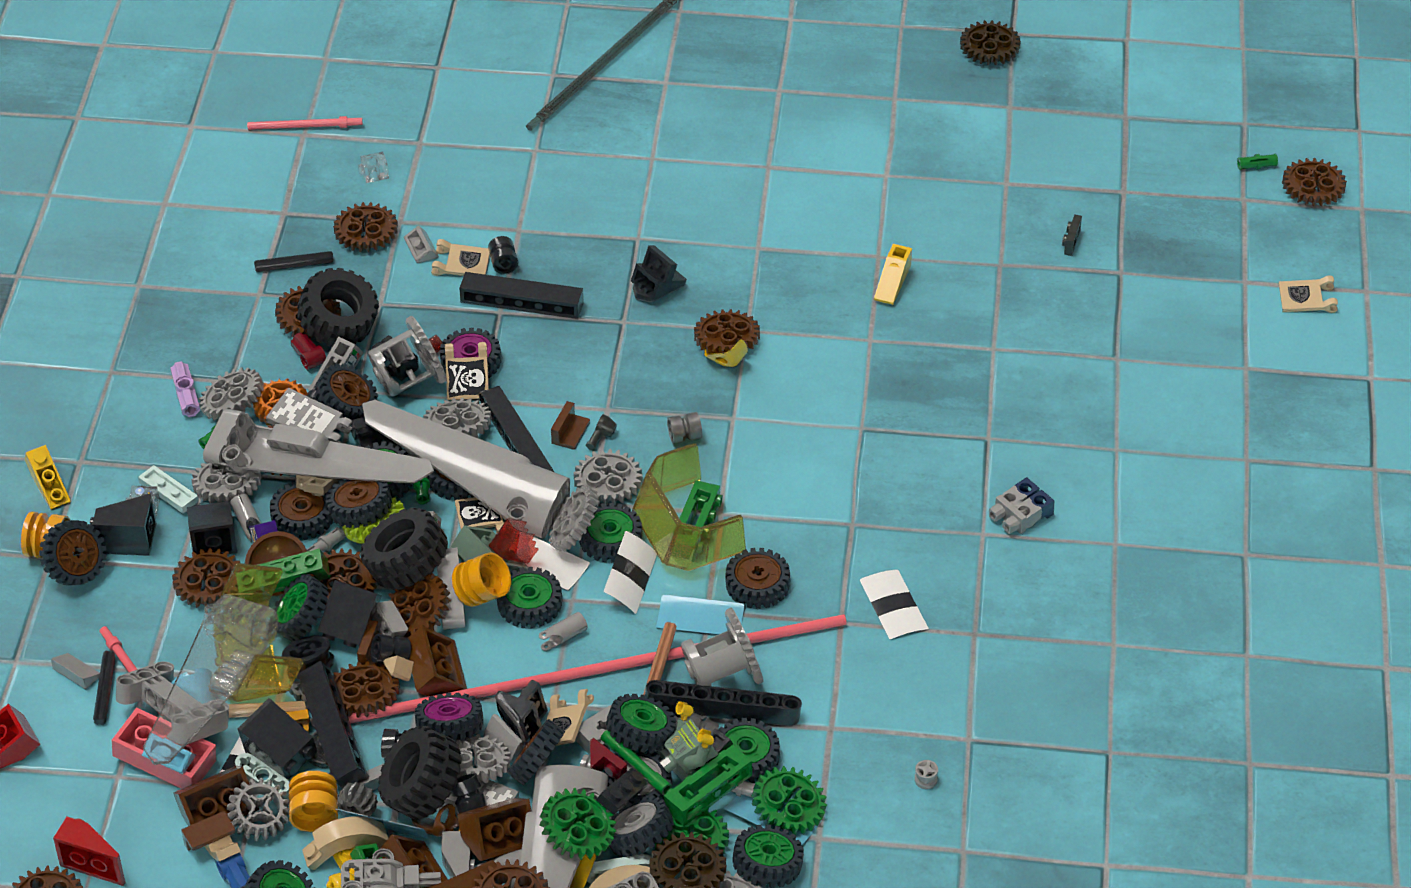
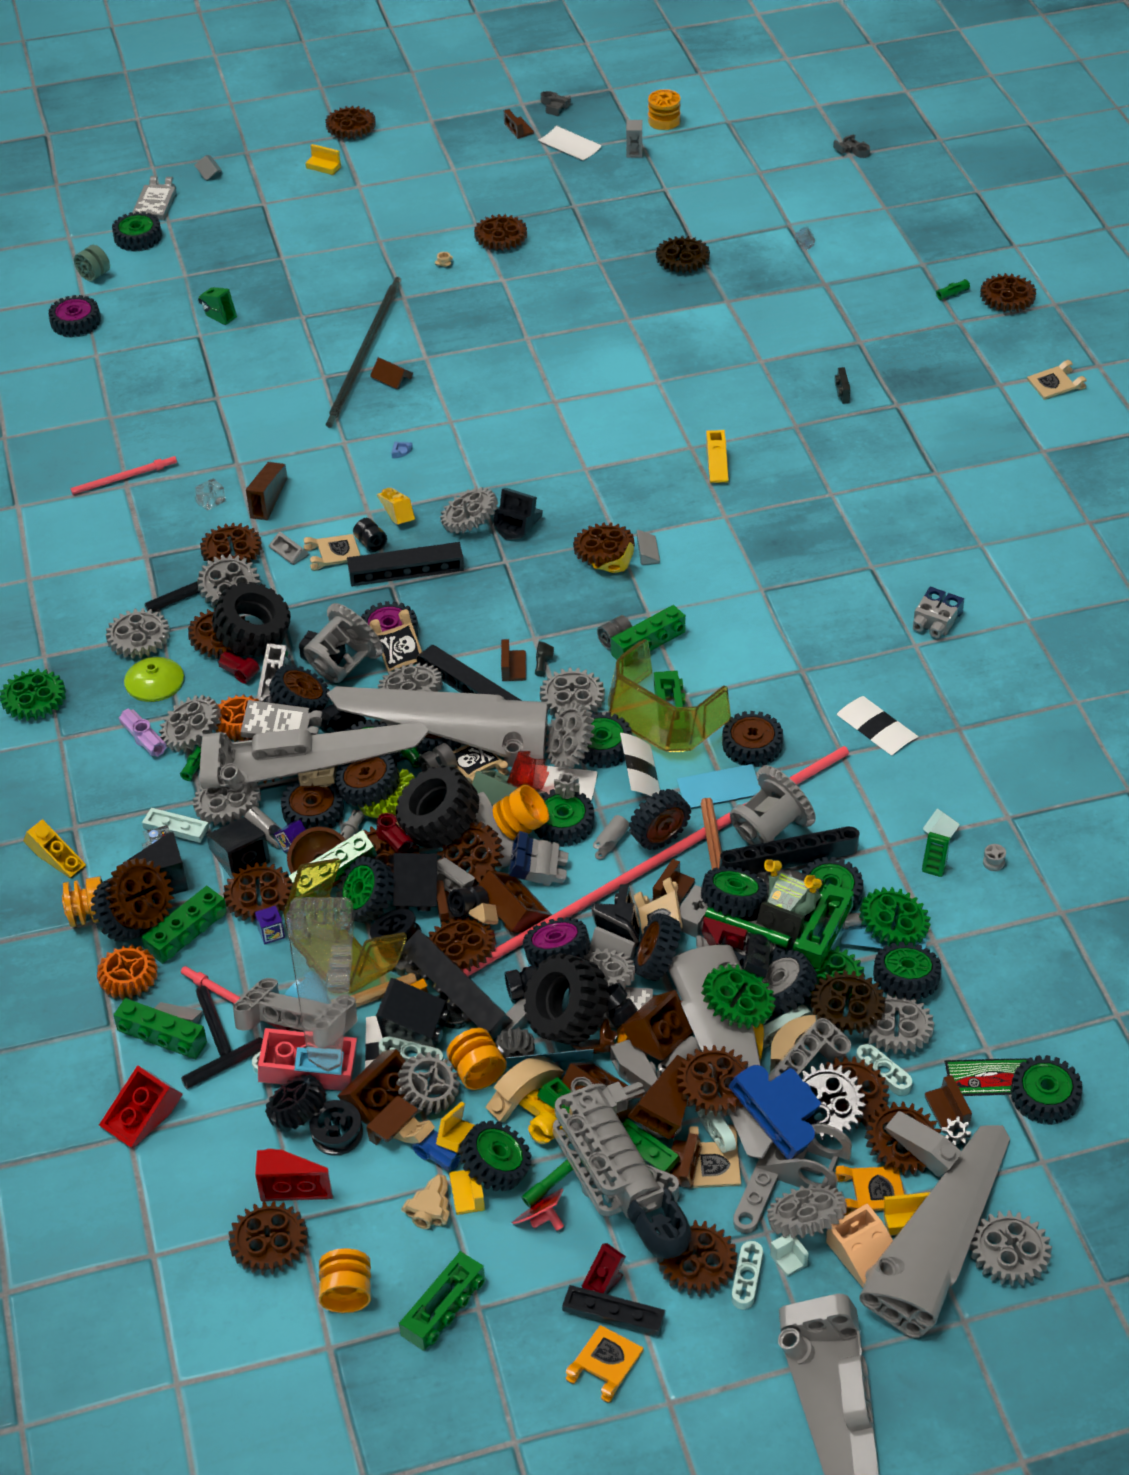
camera: 20 degrees left, 0 degrees up
(51, 615) = (127, 972): none -> orange gear
(52, 677) = (160, 1028): none -> green brick
(86, 728) = (222, 1063): none -> black axle
(92, 564) = (147, 912): none -> reddish brown gear
(106, 320) = (32, 694): none -> green gear
(131, 786) = (295, 1102): none -> black gear
(145, 825) = (328, 1138): none -> black wheel
(150, 579) = (184, 924): none -> green brick
(195, 610) = (270, 924): none -> dark purple brick
(222, 296) = (137, 633): none -> light grey gear
(225, 339) = (154, 679): none -> lime dish
(255, 854) = (453, 1129): none -> yellow panel
(340, 249) = (221, 569): none -> light grey gear
(352, 561) = (389, 831): none -> dark red piece
(428, 178) = (265, 490): none -> slope
(447, 502) = (440, 756): none -> flat silver wheel
(476, 630) = (537, 860): none -> light grey hips
(542, 567) = (566, 785): none -> light grey gear
(546, 232) = (396, 505): none -> yellow slope
(585, 173) = (401, 449): none -> medium blue tile
(601, 690) = (673, 871): none -> reddish brown panel
(611, 258) = (469, 510): none -> light grey gear
(611, 629) = (659, 819): none -> black wheel
(618, 89) = (389, 373): none -> reddish brown panel
(665, 764) = (780, 920): none -> pearl dark grey plate
(720, 438) = (656, 629): none -> green brick
(769, 349) = (647, 548): none -> light grey slope
(865, 756) = (935, 855): none -> green slope
(891, 726) = (941, 824): none -> light aqua panel
(1130, 60) = (805, 238): none -> clear rock

